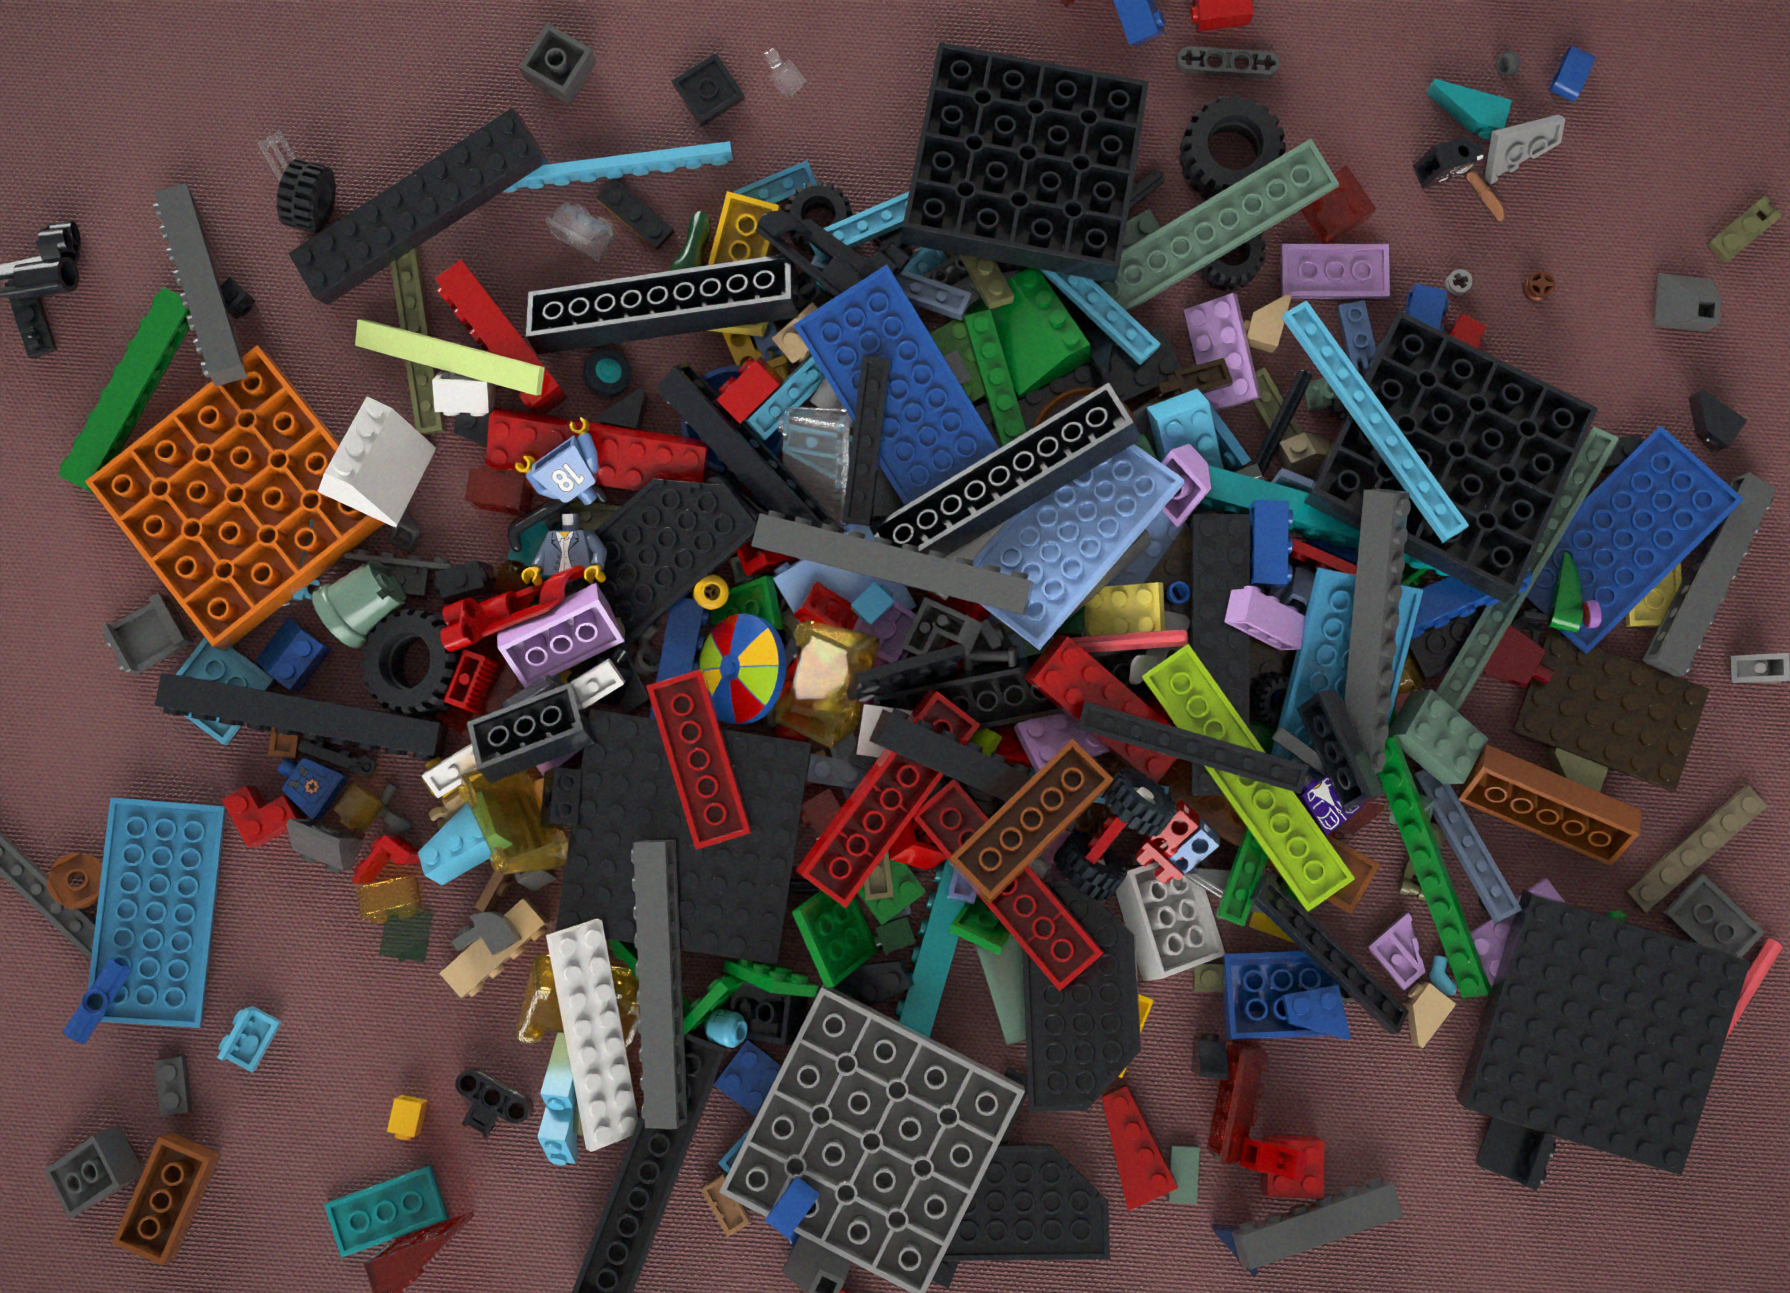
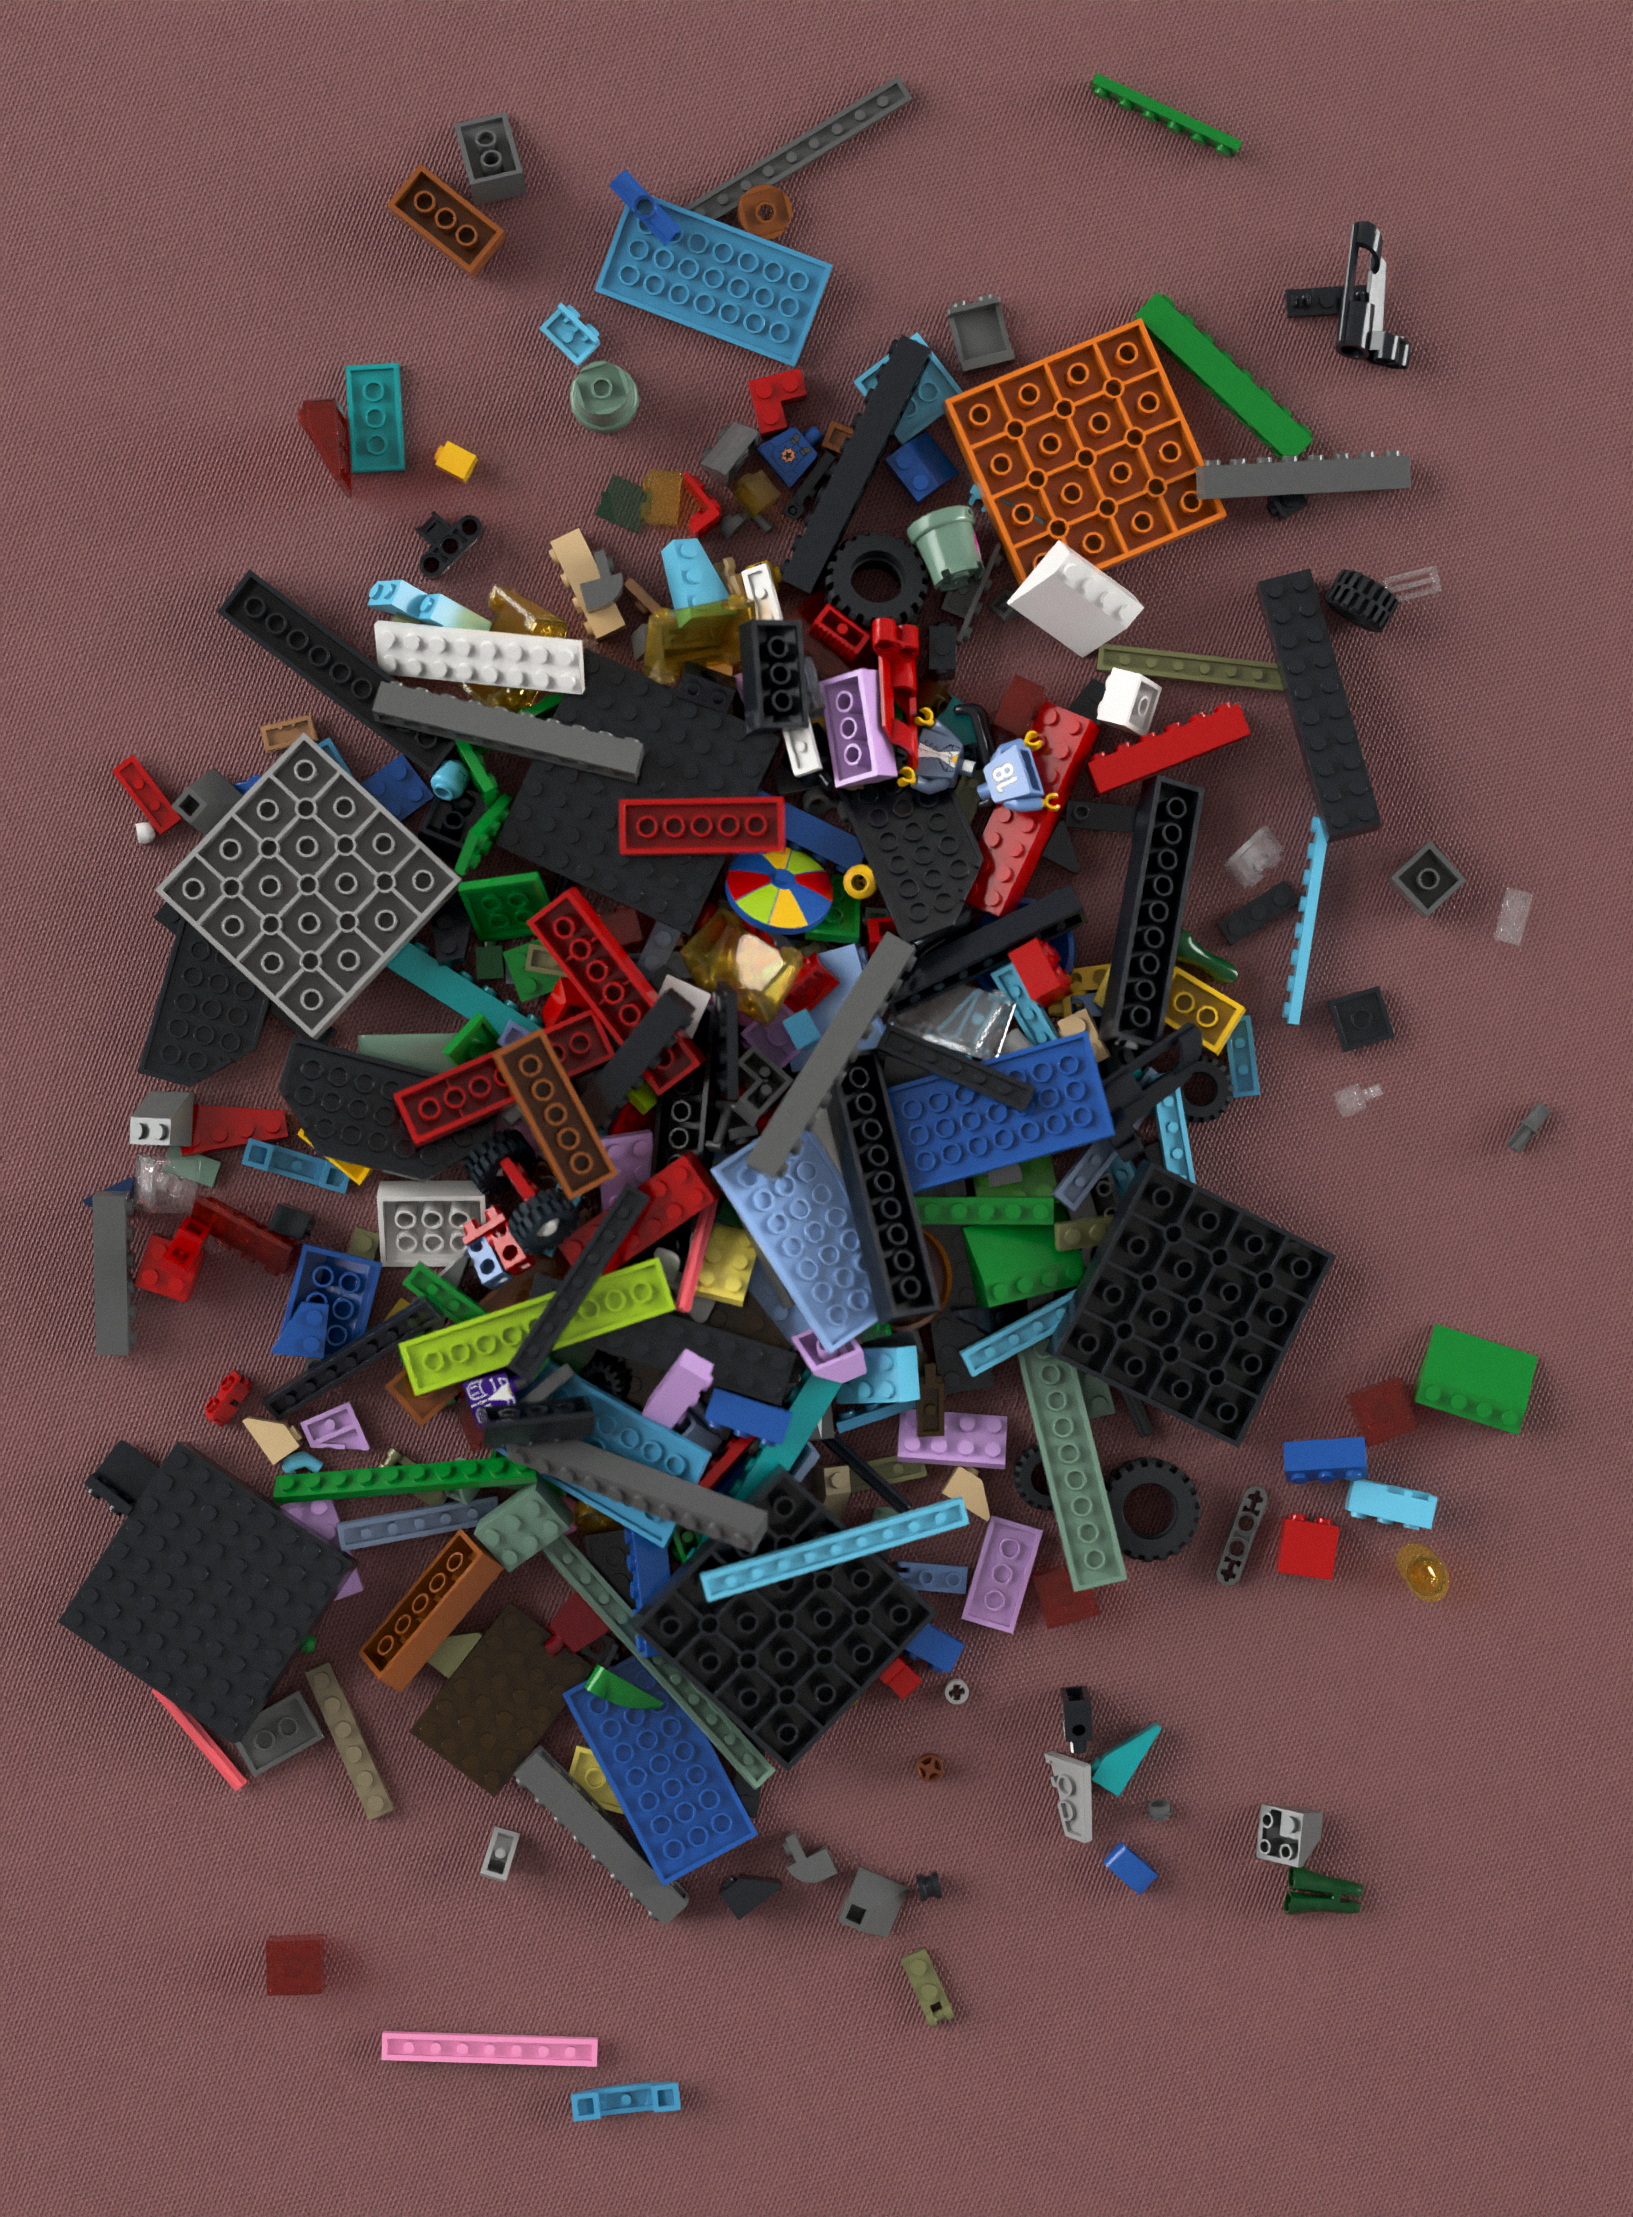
camera: 105 degrees right, 5 degrees up
(173, 1085) = (548, 250): dark grey plate -> none
(302, 987) = (604, 397): none -> sand green piece
(450, 356) = (1161, 695): yellowish green tile -> none
(586, 403) = (1100, 816): none -> black piece
(606, 373) = (1106, 841): black wheel -> none
(792, 1207) = (271, 795): blue beam -> none
(1149, 1218) = (163, 1119): none -> dark grey slope
(1152, 1072) = (294, 1165): none -> dark azure slope
(1181, 590) = (730, 1323): blue hinge -> none
(1218, 1196) = (164, 1191): none -> clear slope
(1390, 1068) = (220, 1406): none -> red hinge
(1487, 195) = (1035, 1746): nougat piece -> none
(1591, 614) = (597, 1706): medium lavender tile -> none
(1651, 253) = (929, 1886): none -> black wheel
(1669, 369) = (811, 1866): none -> dark grey brick

